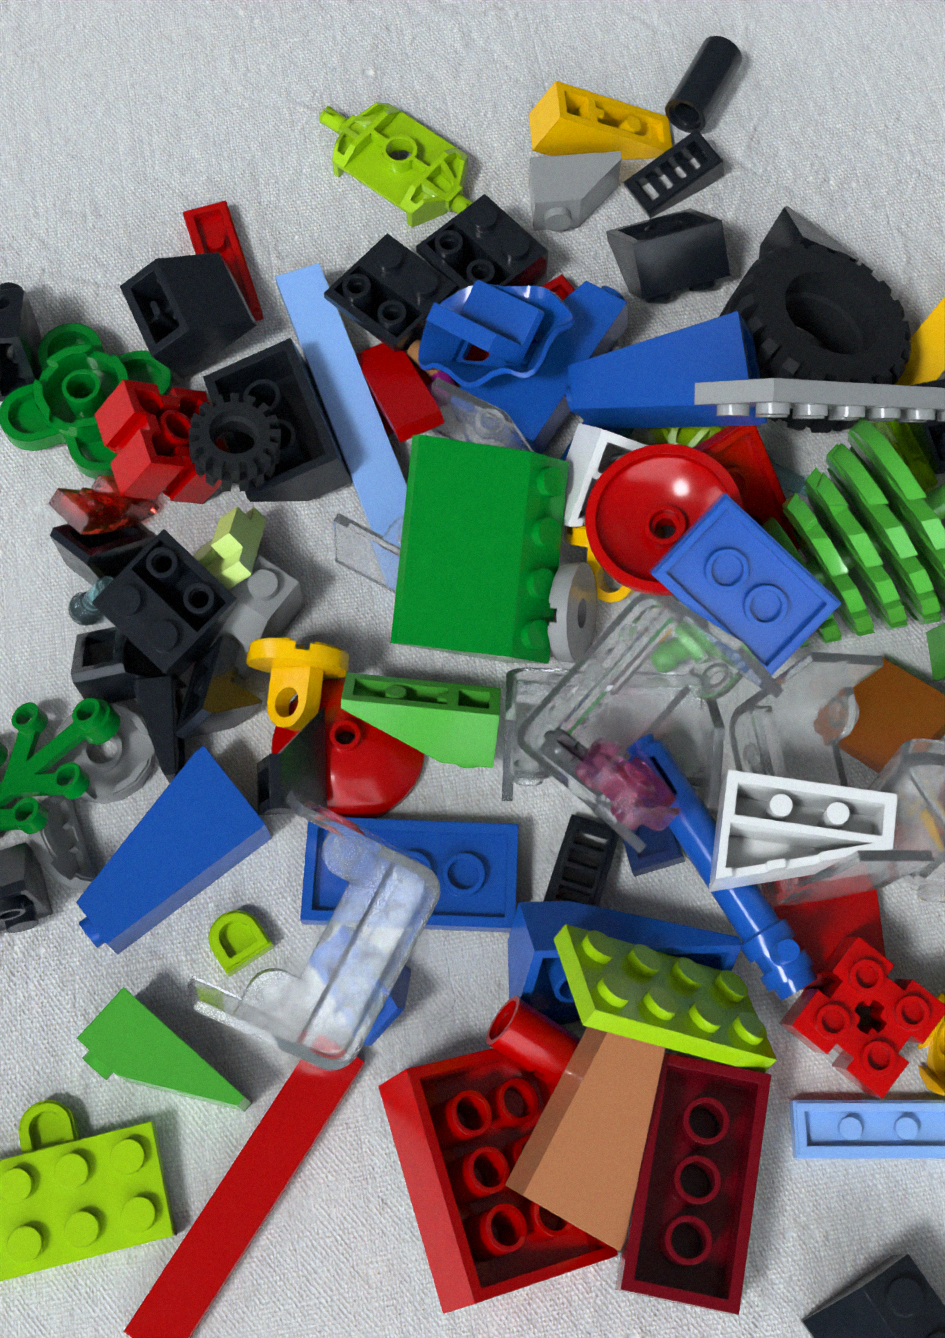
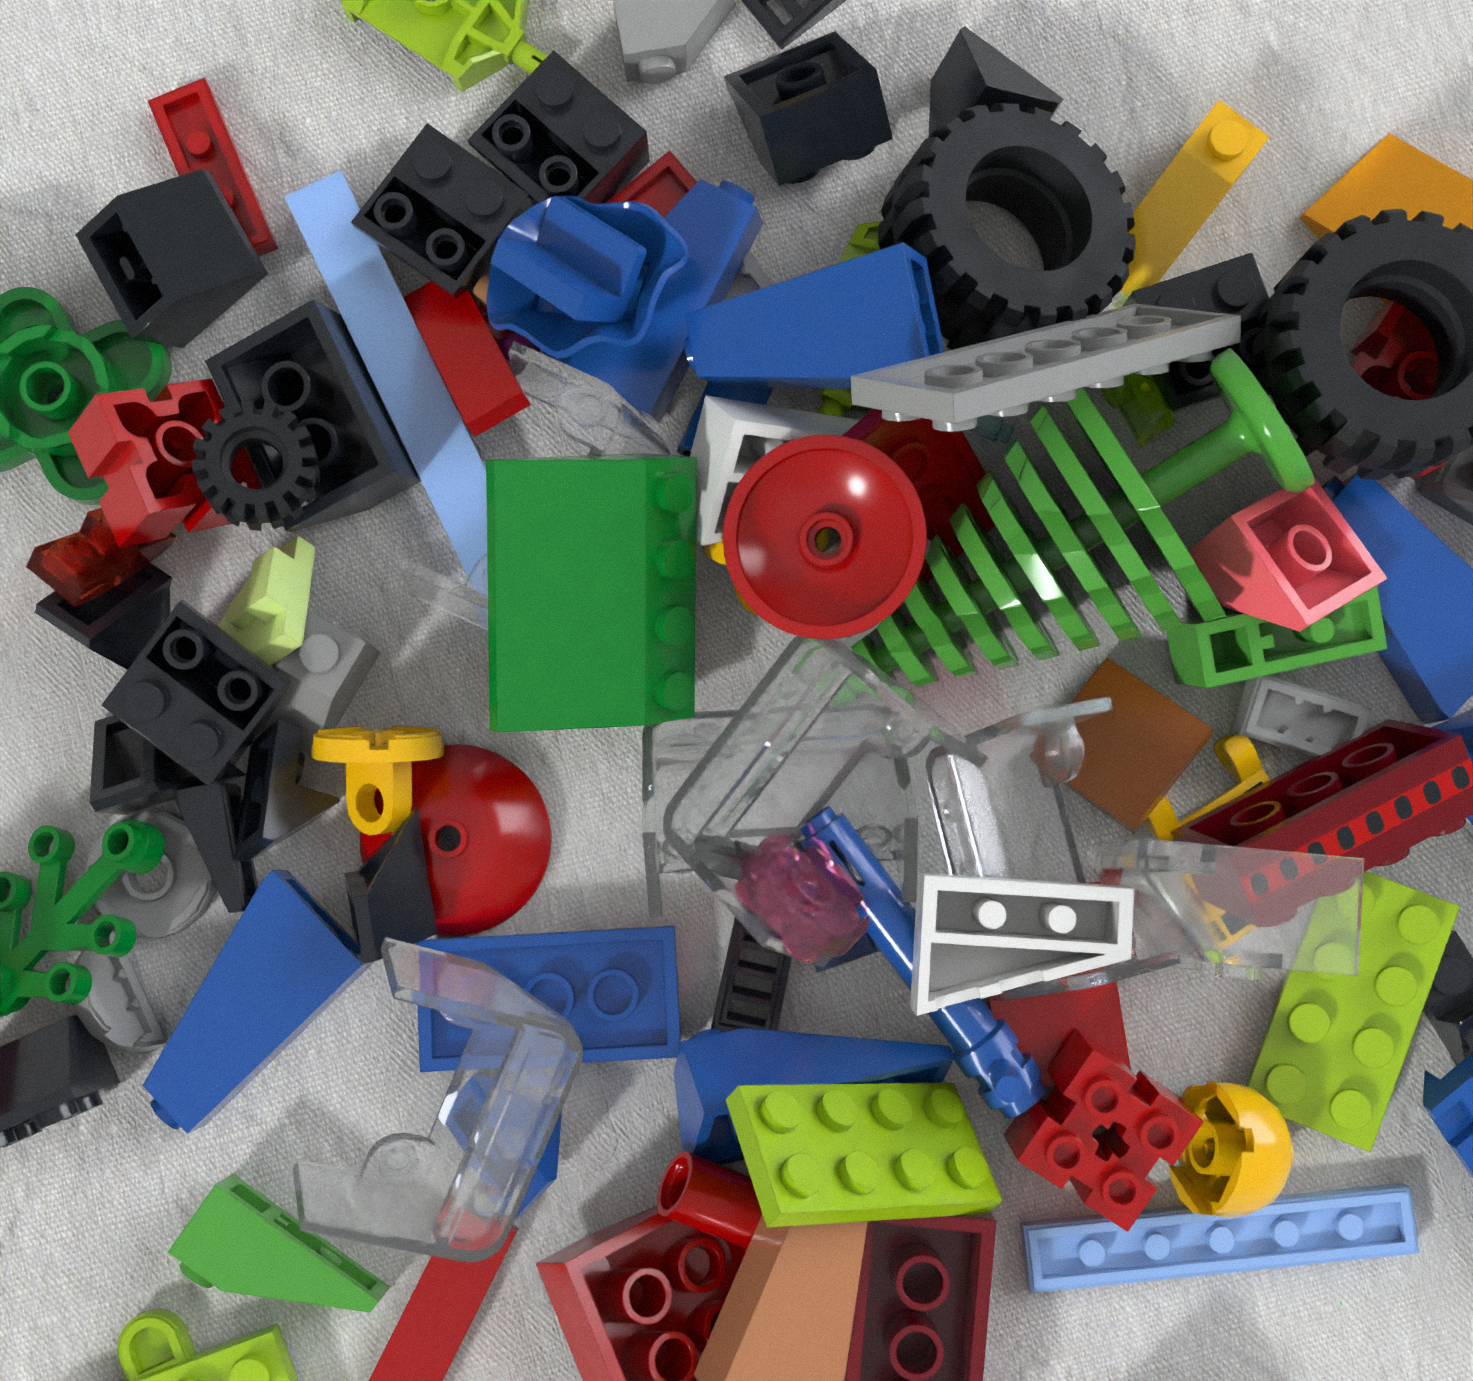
camera: 10 degrees left, 15 degrees up
(80, 605) = (99, 682): clear light blue piece -> none
(237, 940) = (348, 1097): lime tile -> none
(434, 717) = (551, 803): bright green slope -> none
(576, 604) = (722, 646): light grey tile -> none
(745, 583) = (932, 625): blue tile -> none

